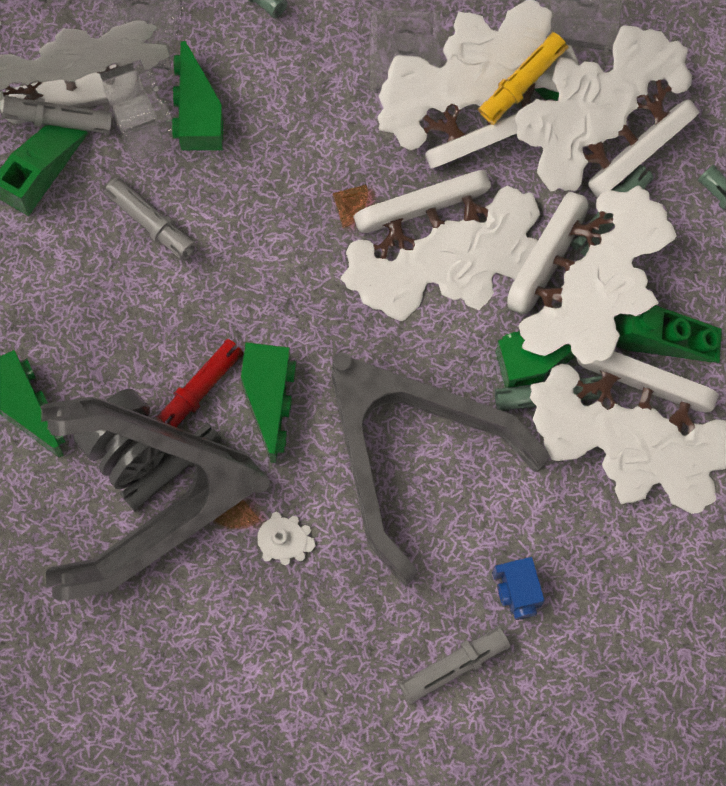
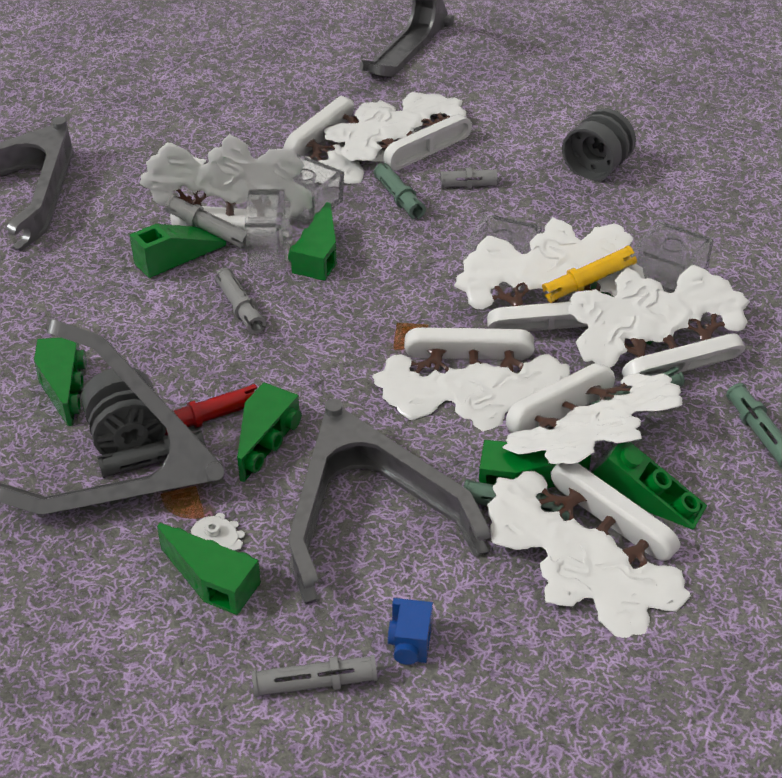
camera: 25 degrees right, 30 degrees down
(309, 590) = (213, 571): none -> green slope

